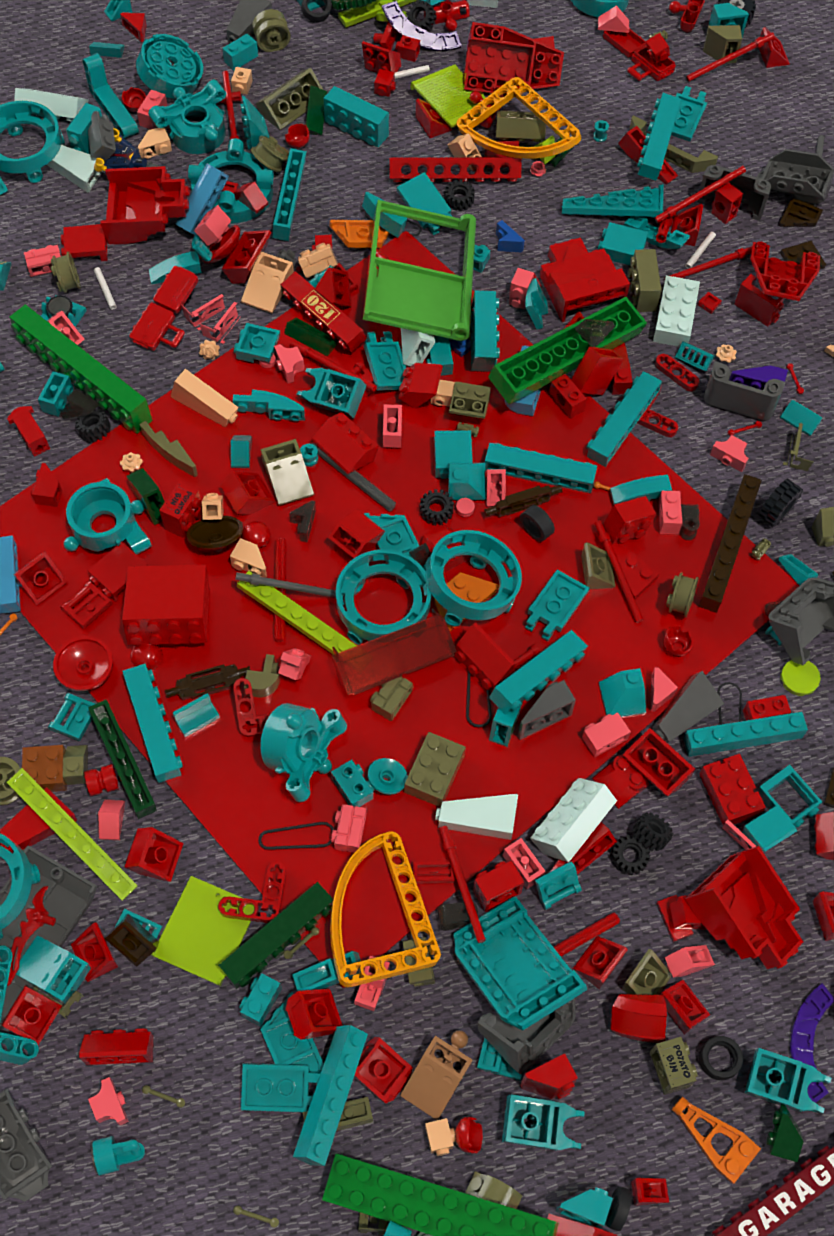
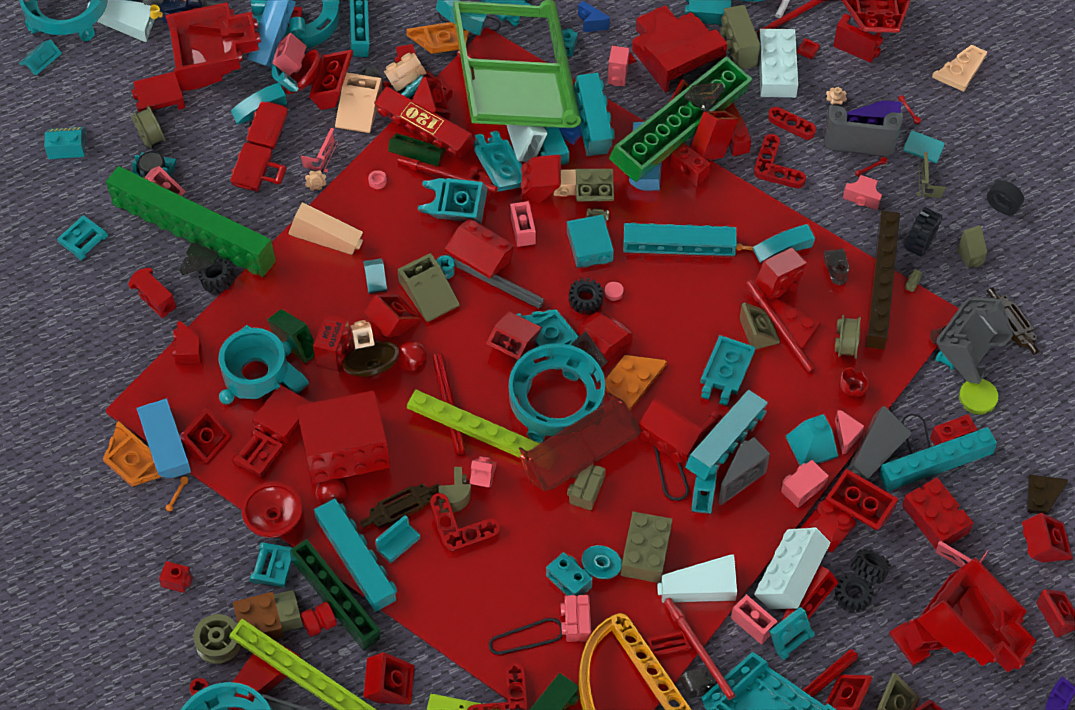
camera: 10 degrees left, 5 degrees down
(39, 260) = (118, 119): coral brick -> none
(55, 393) = (170, 250): teal brick -> none
(105, 289) = (199, 148): white piece -> none
(110, 819) = (337, 656): coral slope -> none
(131, 462) = (266, 305): light nougat plant -> none
(170, 451) = (305, 288): olive slope -> none
(213, 304) = (311, 132): coral piece -> none
(248, 558) = (410, 377): light nougat slope -> none
(251, 196) = (321, 18): slope -> none
(255, 579) = (427, 396): dark grey bar -> none
(256, 343) = (364, 165): teal plate -> none
(276, 405) = (399, 223): teal slope -> none
(289, 361) = (401, 178): coral brick -> none
(297, 743) = (508, 546): teal piece -> none
(304, 518) = (456, 328): clear smoke slope -> none
(466, 480) = (610, 264): teal slope -> none
(483, 550) = (644, 328): teal piece -> none
(495, 486) = (640, 266): coral slope -> none
(498, 885) = (734, 643): red brick -> none
(523, 500) = (670, 274): dark brown piece -> none
(536, 303) = (637, 78): teal slope -> none
(537, 523) = (690, 293): black tyre -> none
(623, 419) = (751, 177): teal brick -> none
(670, 512) = (817, 260): coral brick -> none
(689, 960) = (932, 679): coral slope -> none
(707, 363) = (818, 113): teal slope -> none
(769, 829) = (981, 541): teal slope -> none
(797, 569) = (952, 293): teal slope -> none
(799, 785) = (1002, 499): teal window -> none

